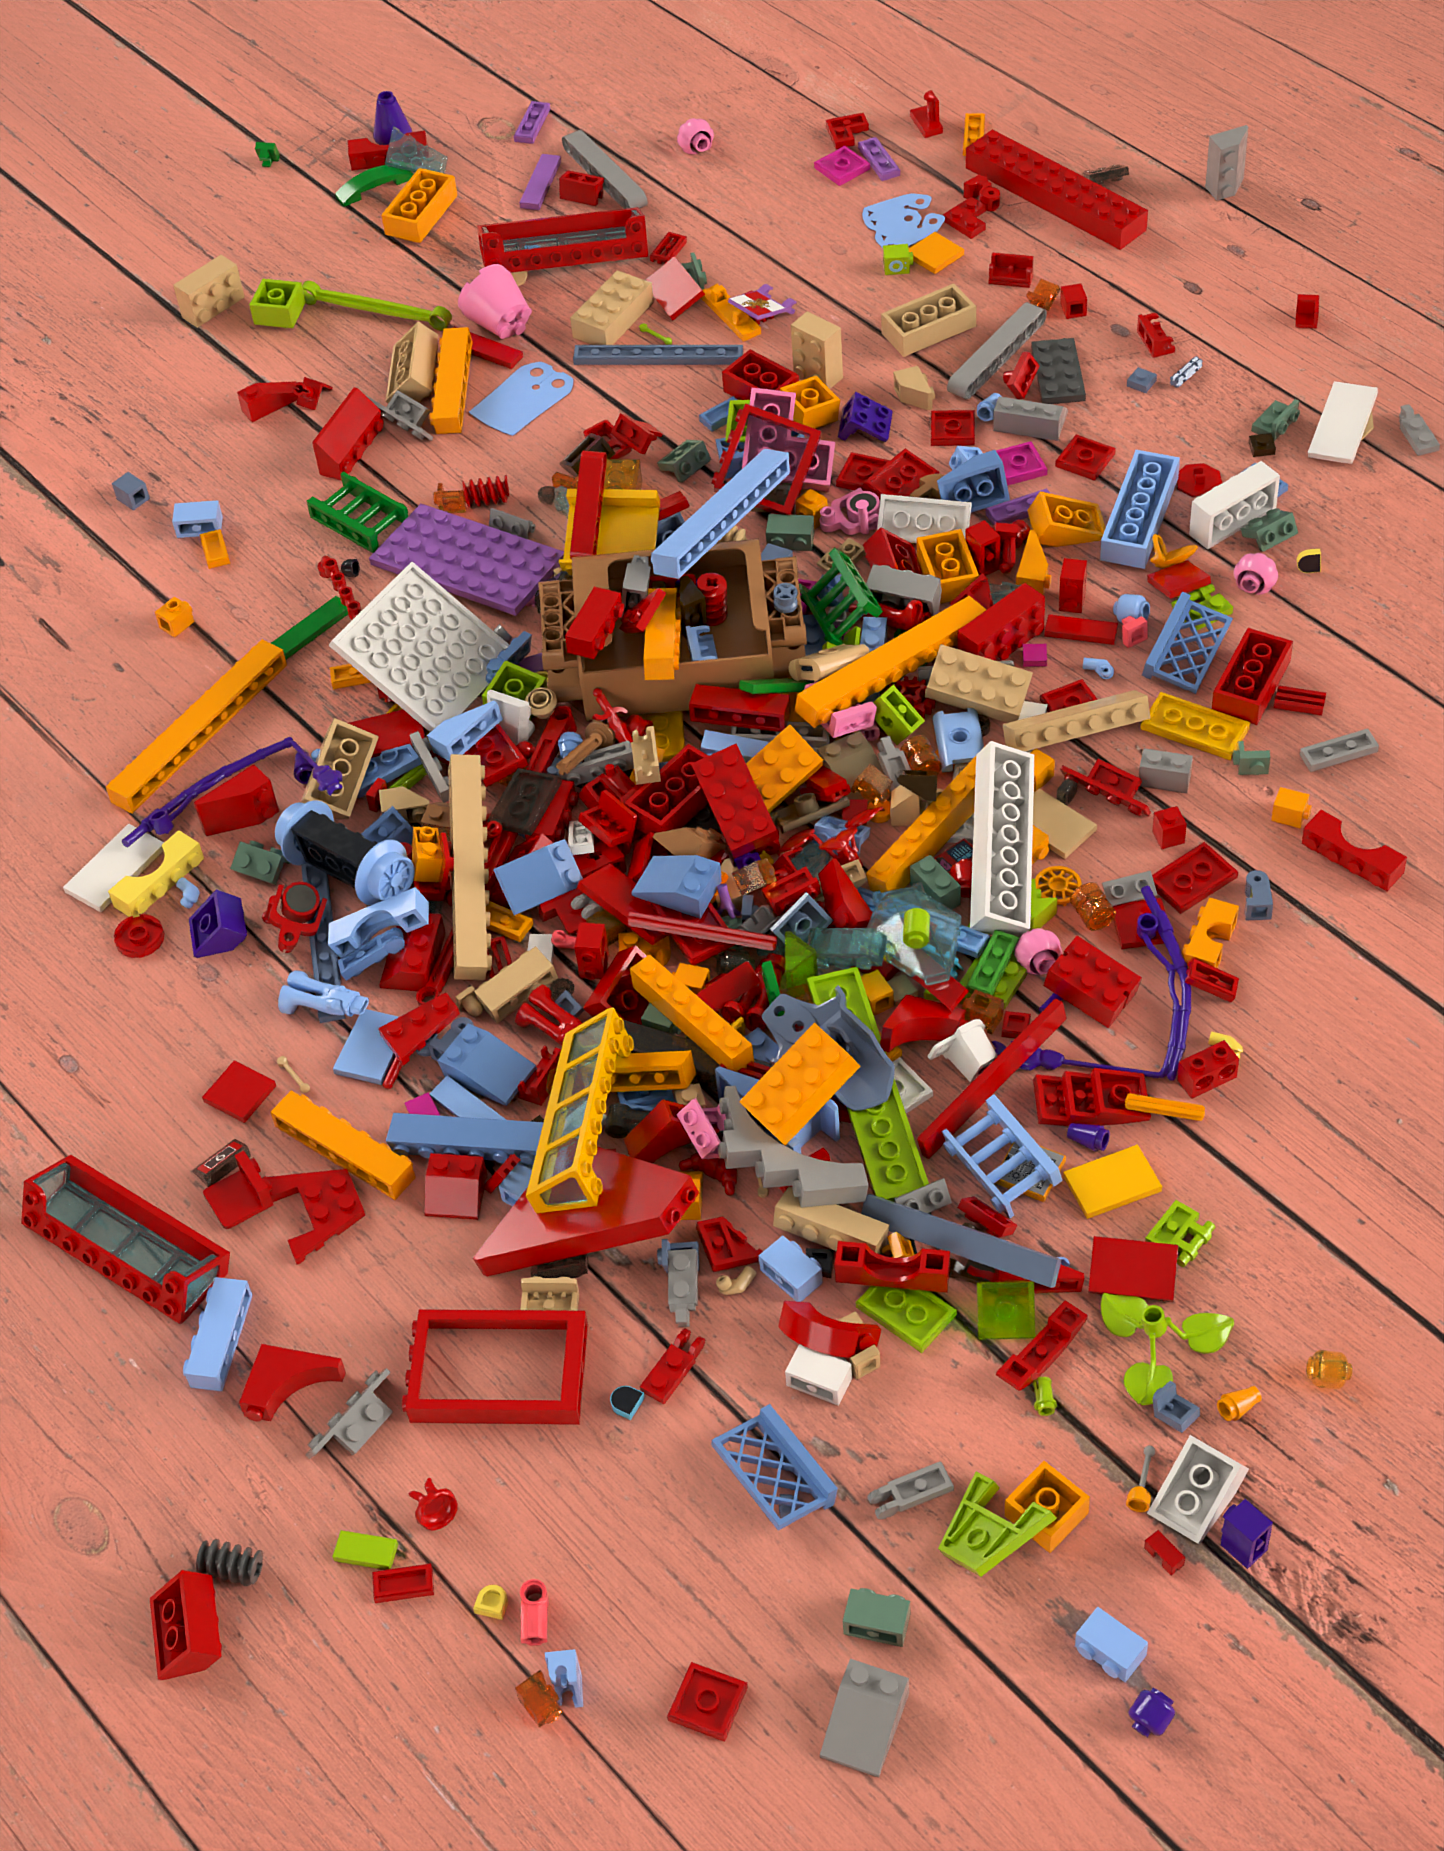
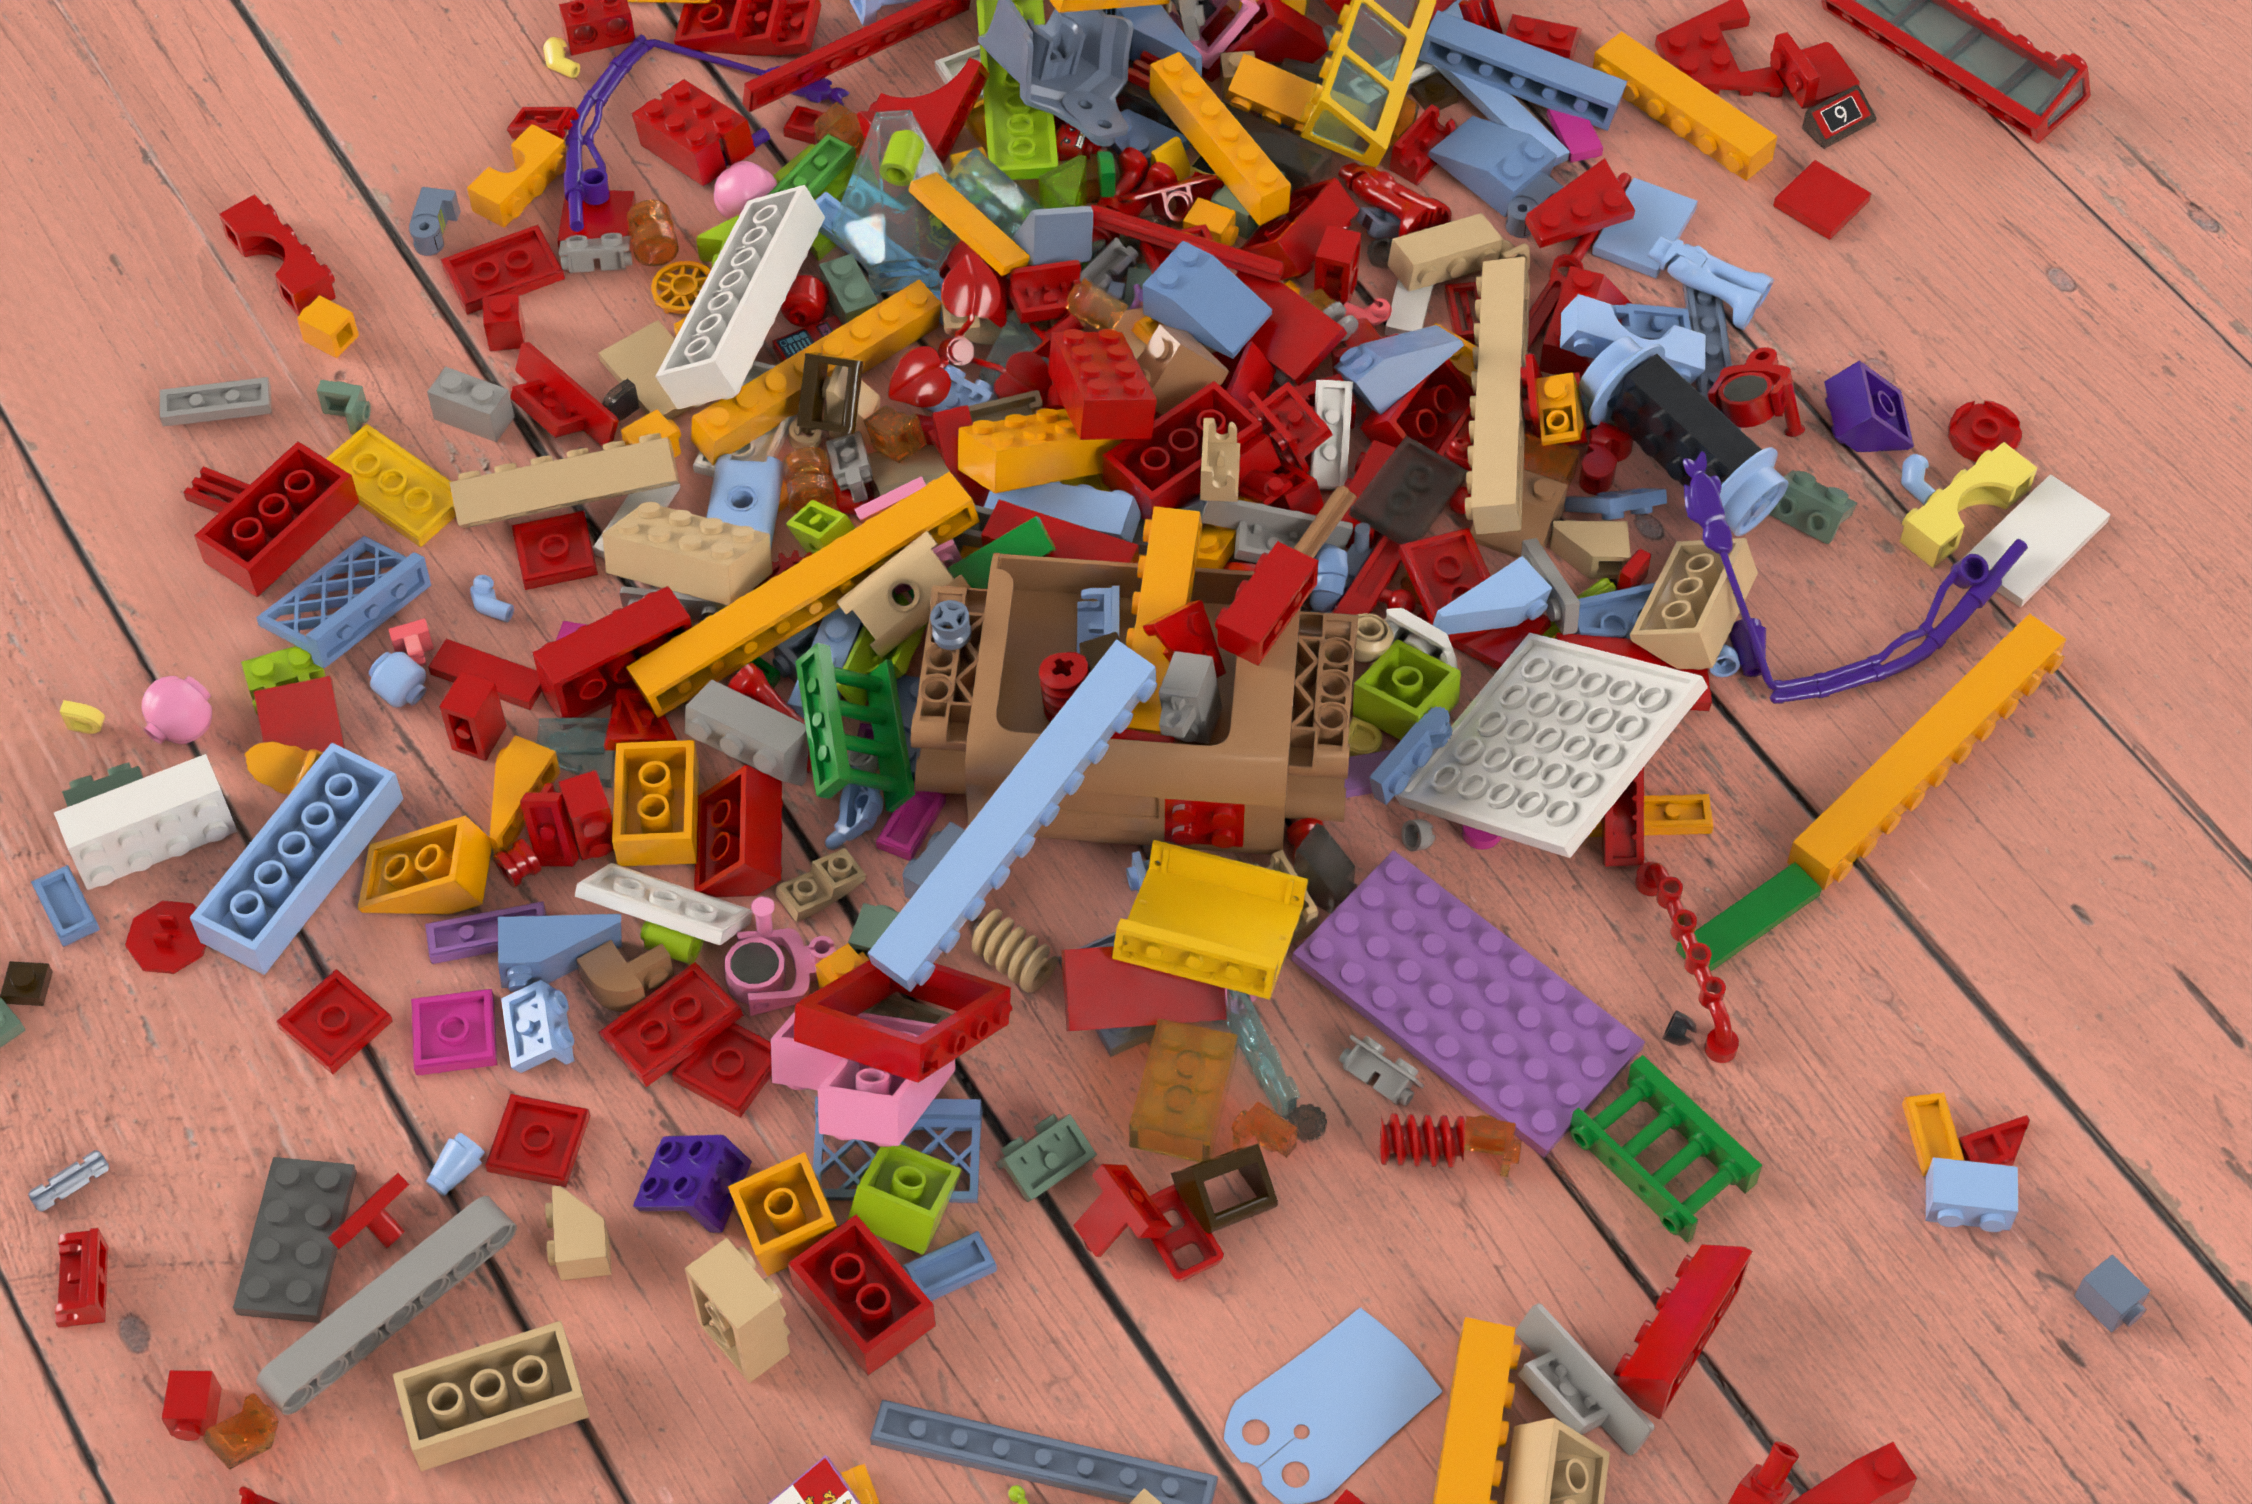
camera: 175 degrees left, 5 degrees up
(174, 616) = (1991, 974): light orange brick -> none
(182, 548) = (1995, 1144): none -> red tile
(237, 803) = (1847, 573): red slope -> none
(283, 1062) = (1766, 231): tan hinge -> none
(588, 504) = (1241, 924): red beam -> none
(857, 906) = (968, 223): none -> light orange tile
(967, 1049) = (871, 73): white container -> none
(1029, 418) = (389, 1123): light grey slope -> none
(1141, 380) = (156, 1181): sand blue plate -> none

